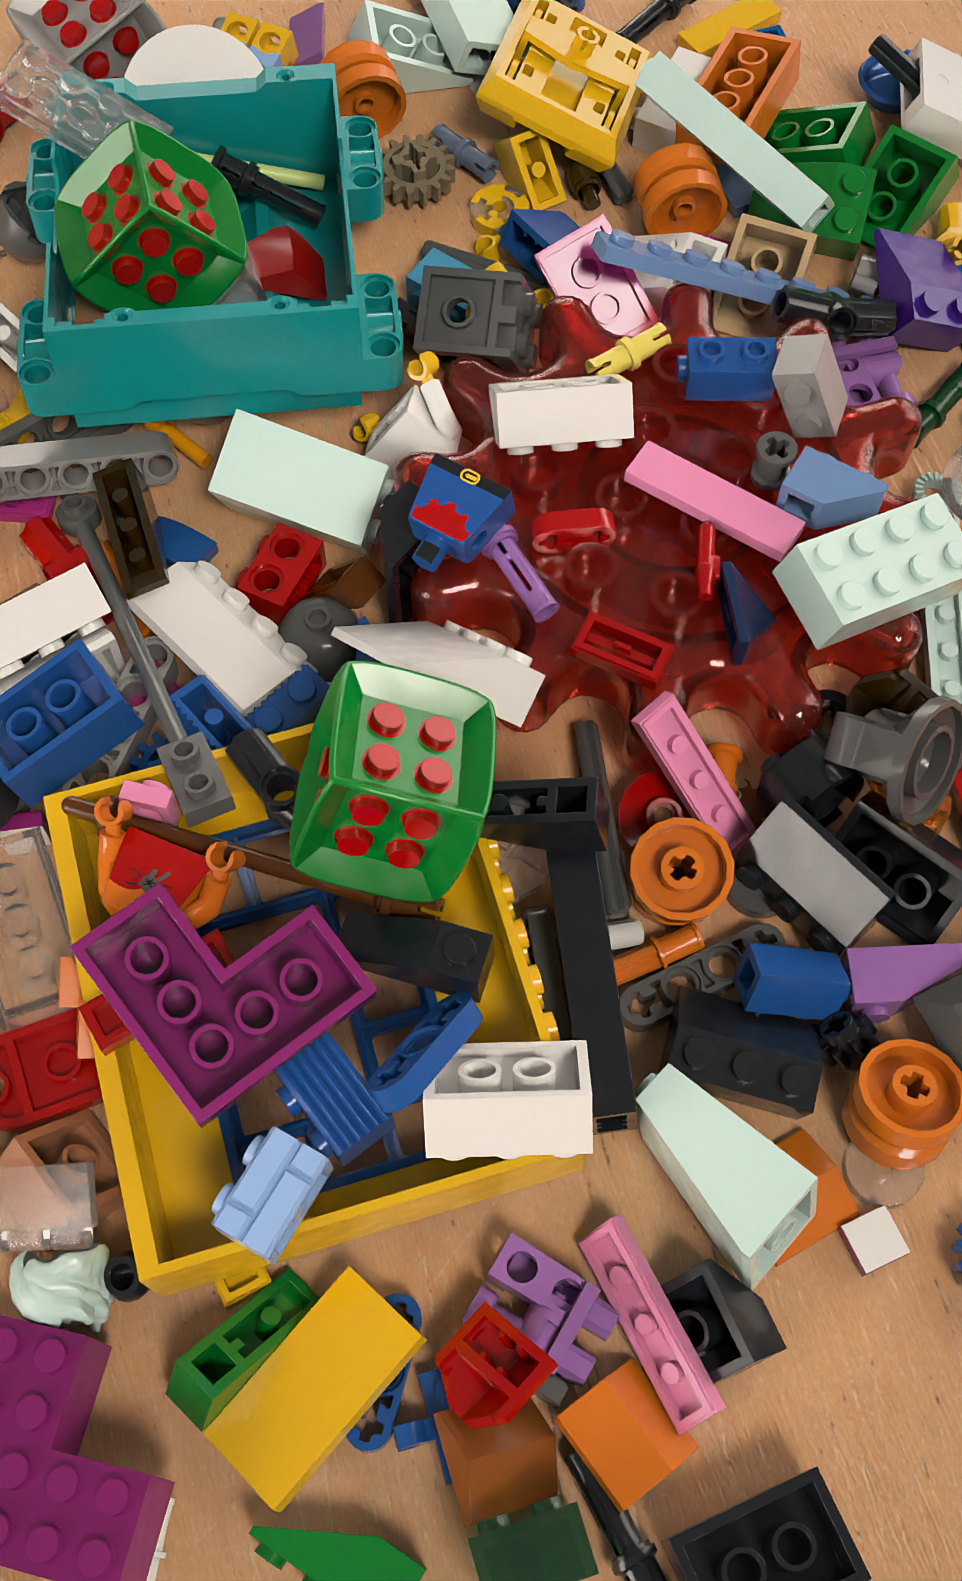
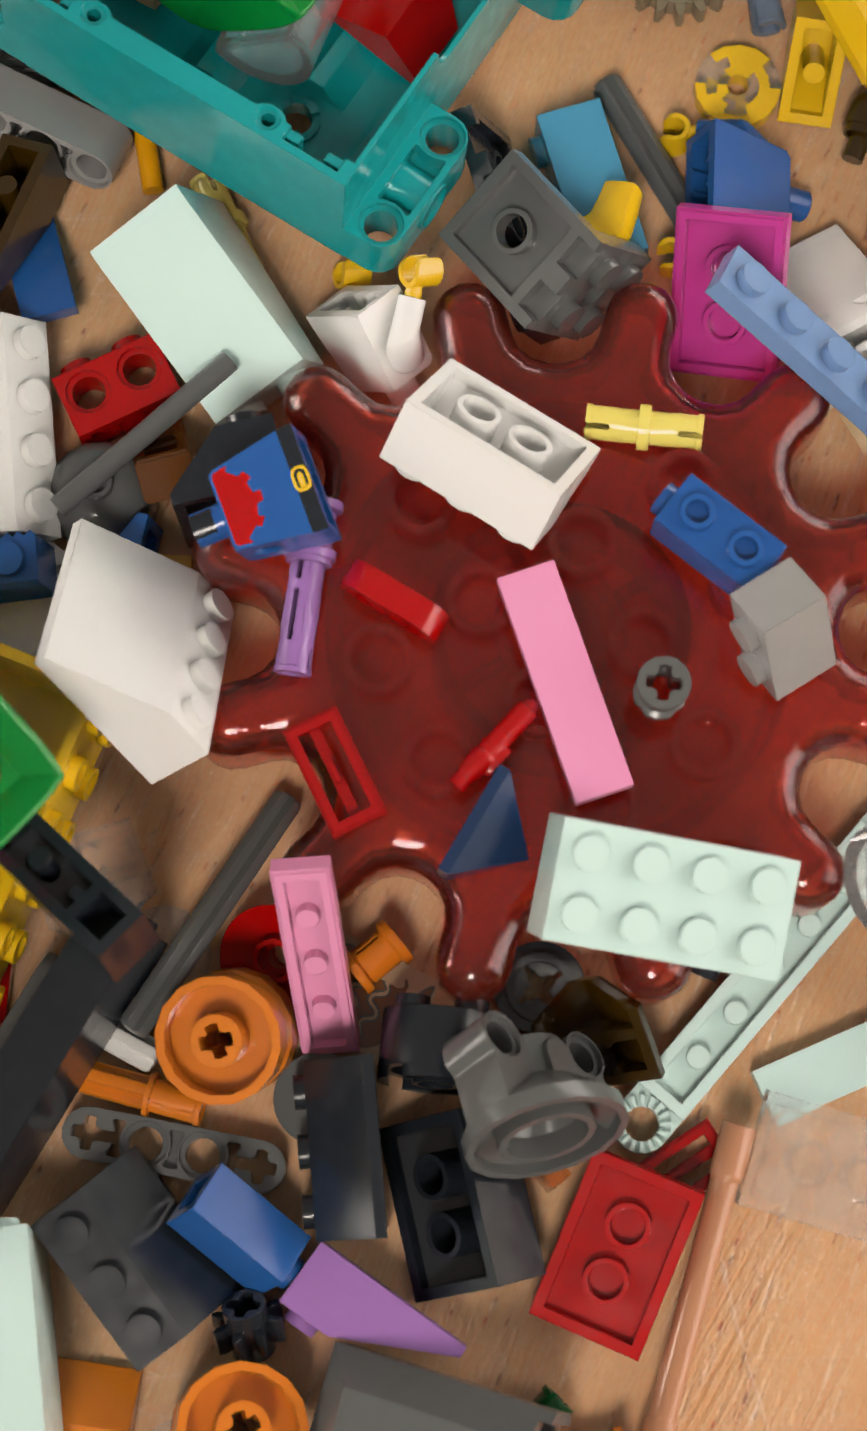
camera: 40 degrees right, 15 degrees up
(326, 569) = (143, 434): none -> dark grey bar
(829, 491) = (683, 767): medium blue slope -> none

